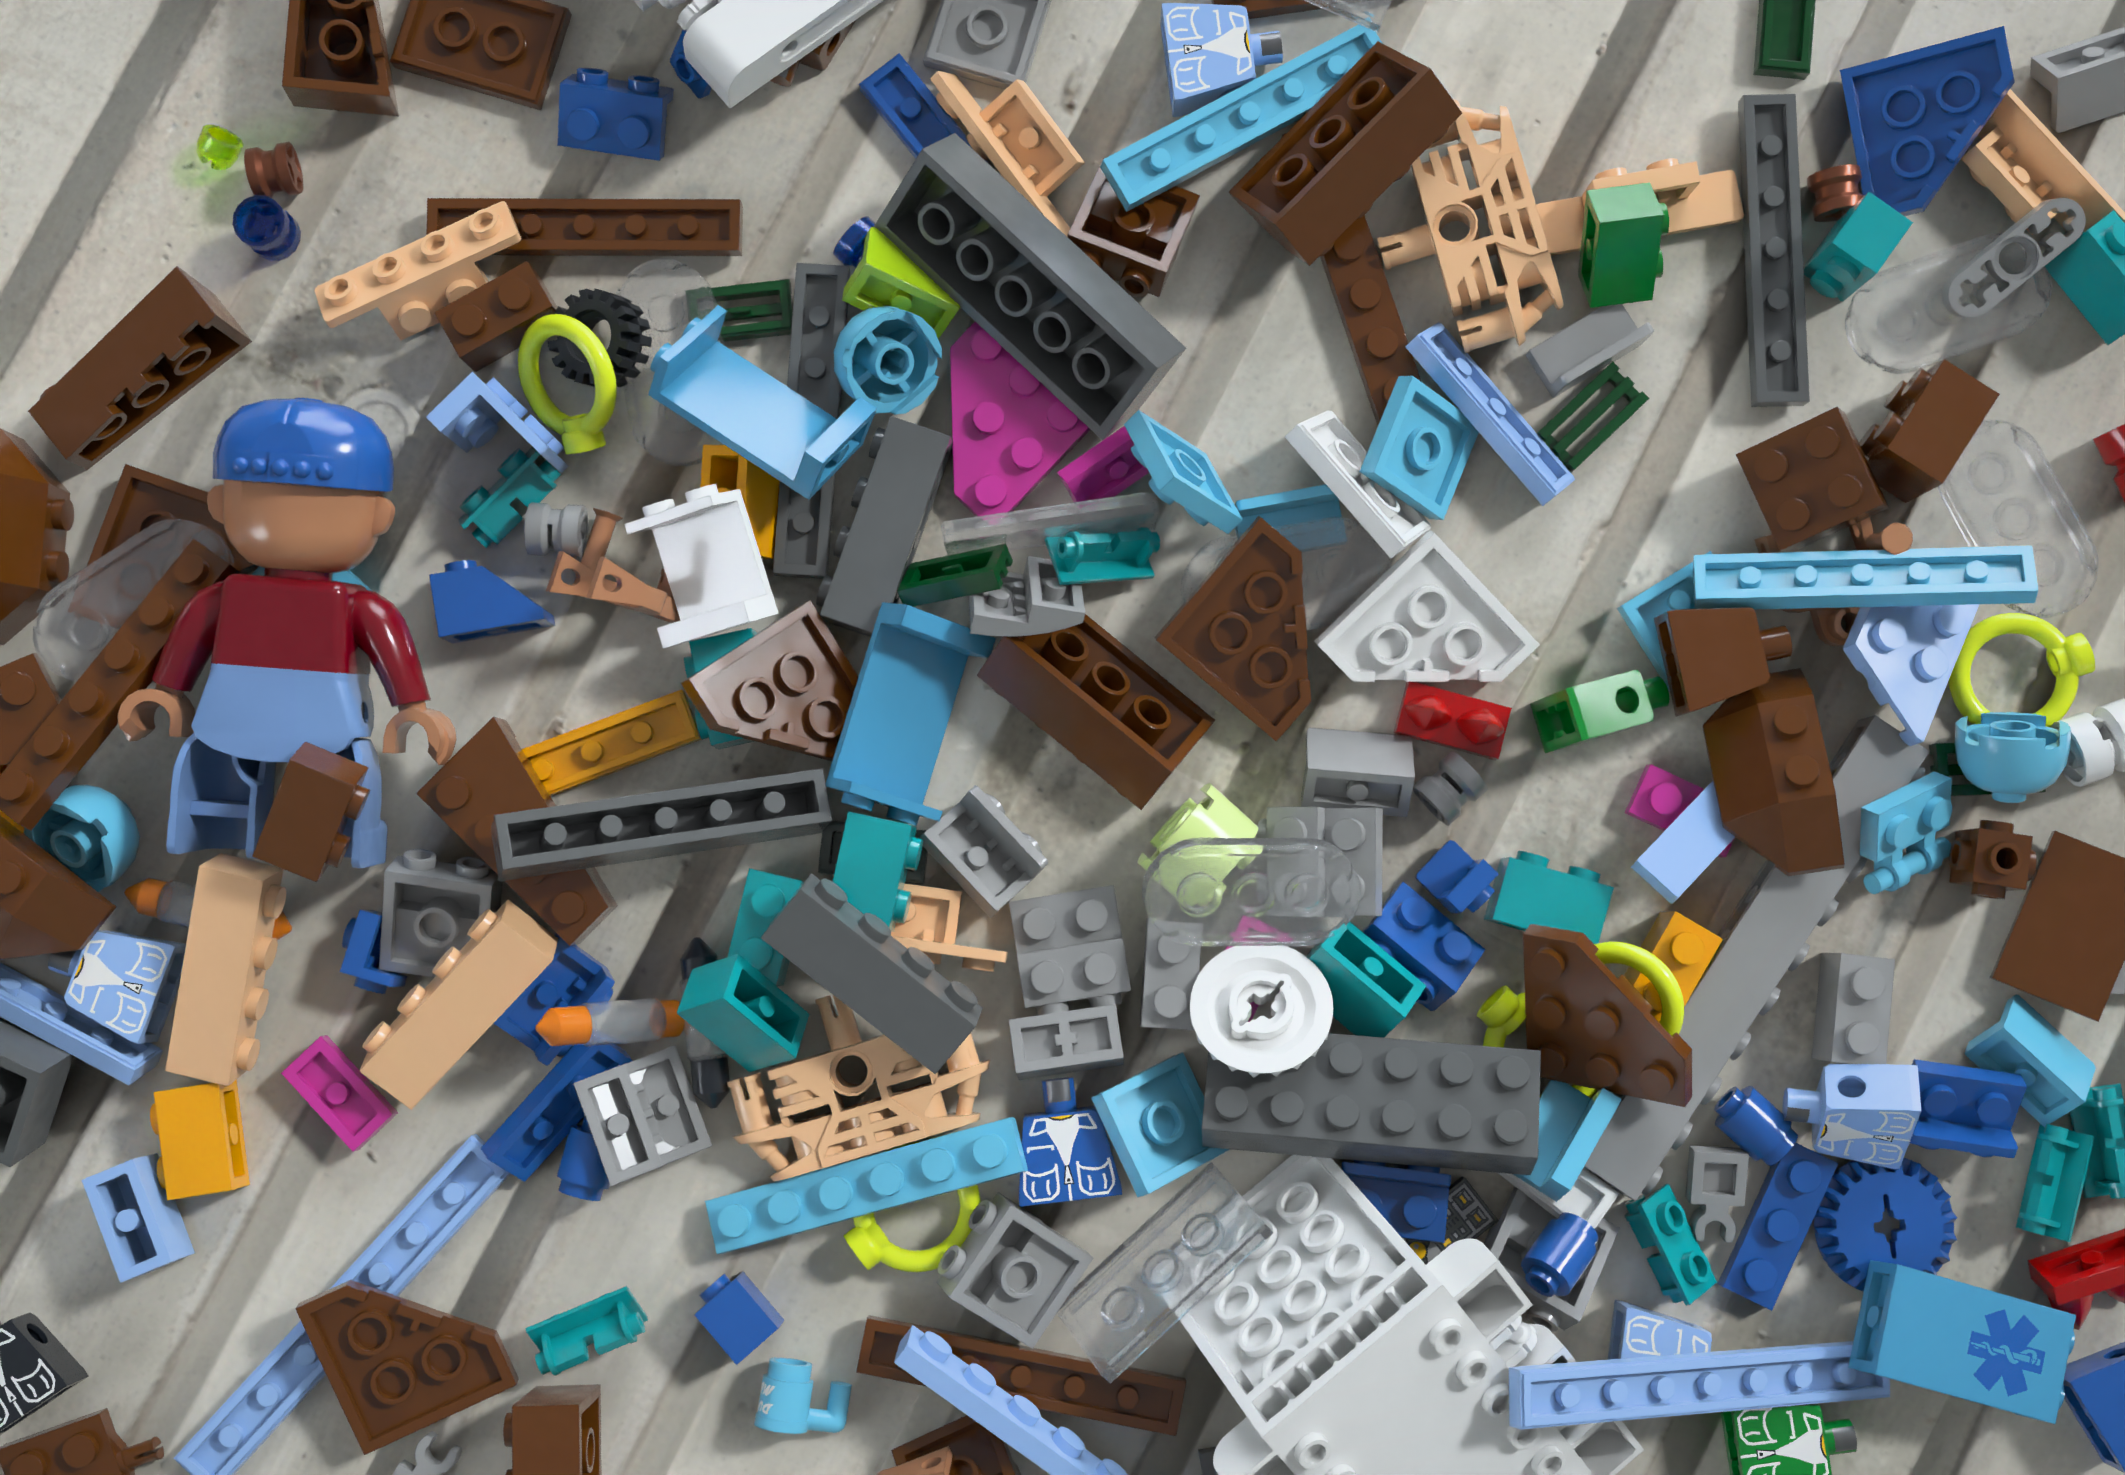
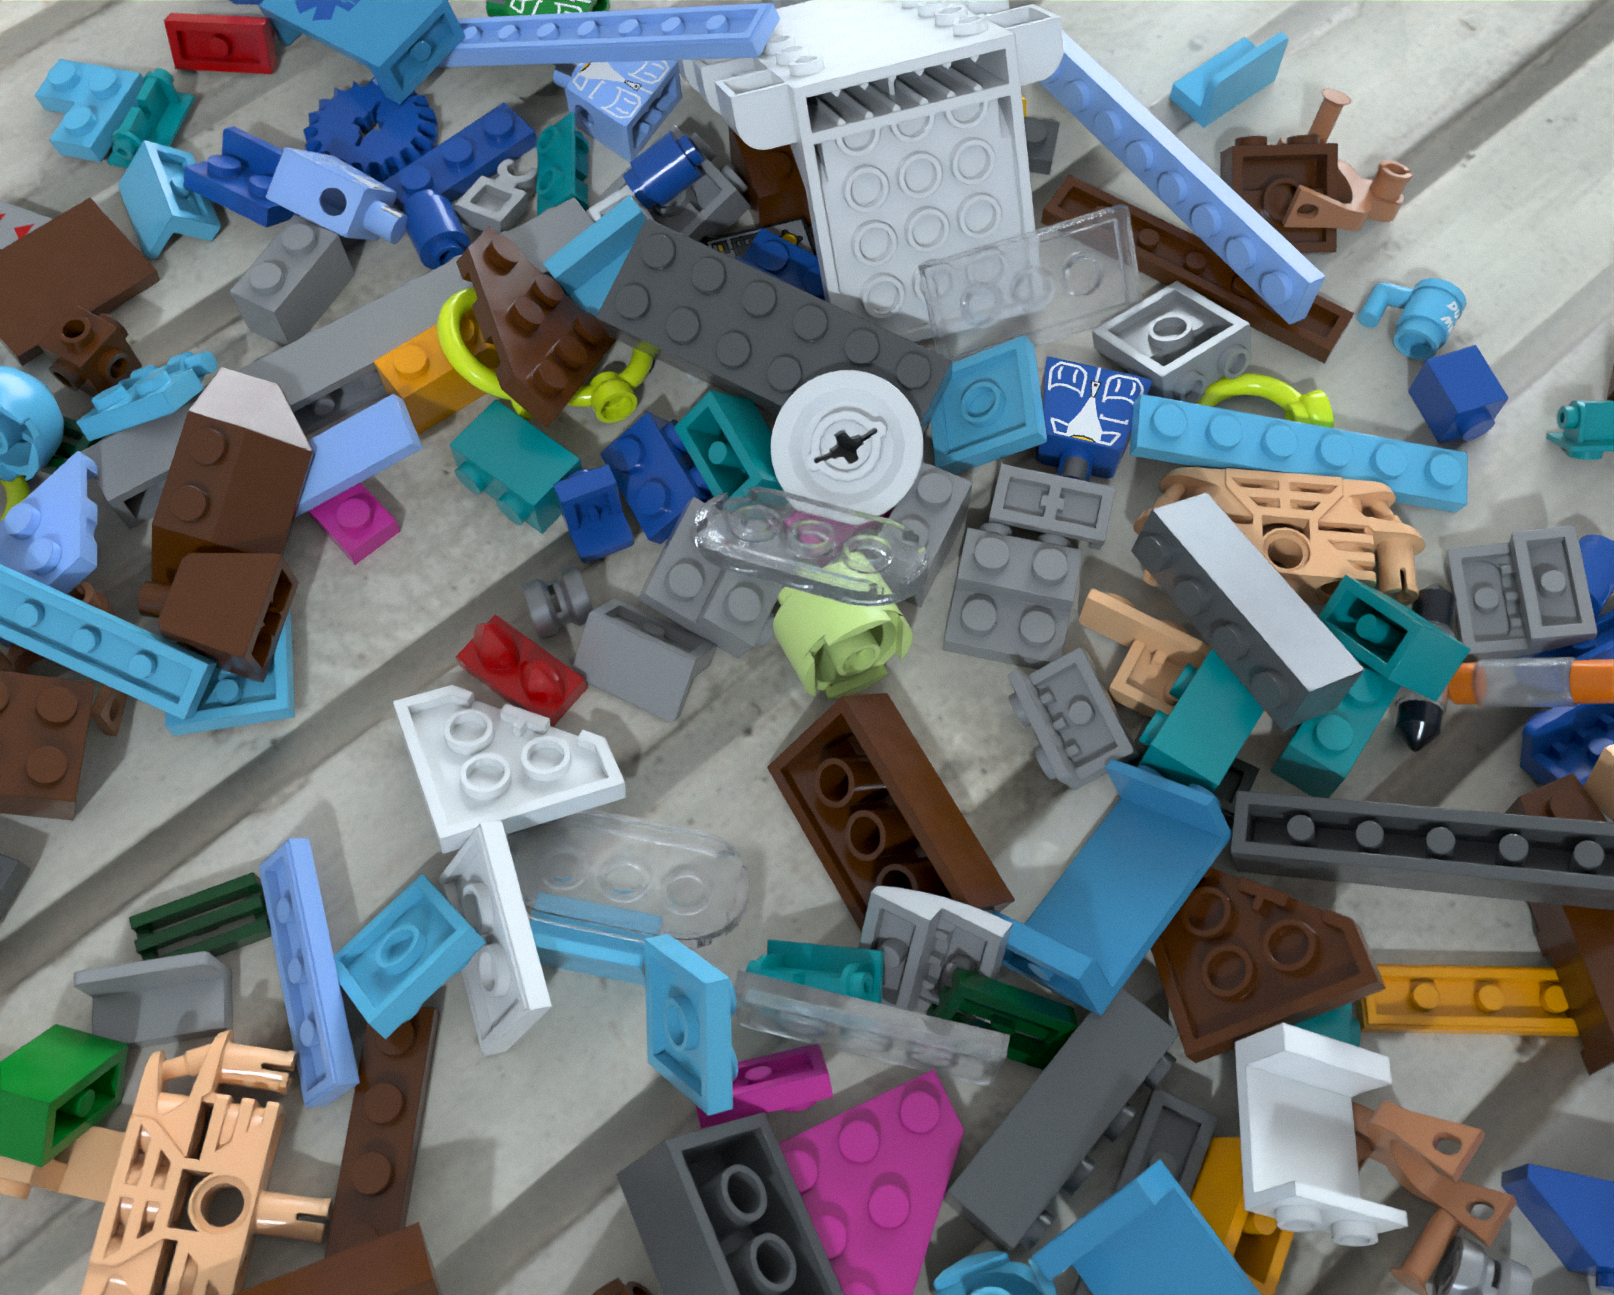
camera: 160 degrees left, 20 degrees down
(1249, 630) = (690, 832): reddish brown plate -> none
(1598, 709) = (373, 611): green torso -> none
(2055, 1182) = (212, 106): teal hinge -> none

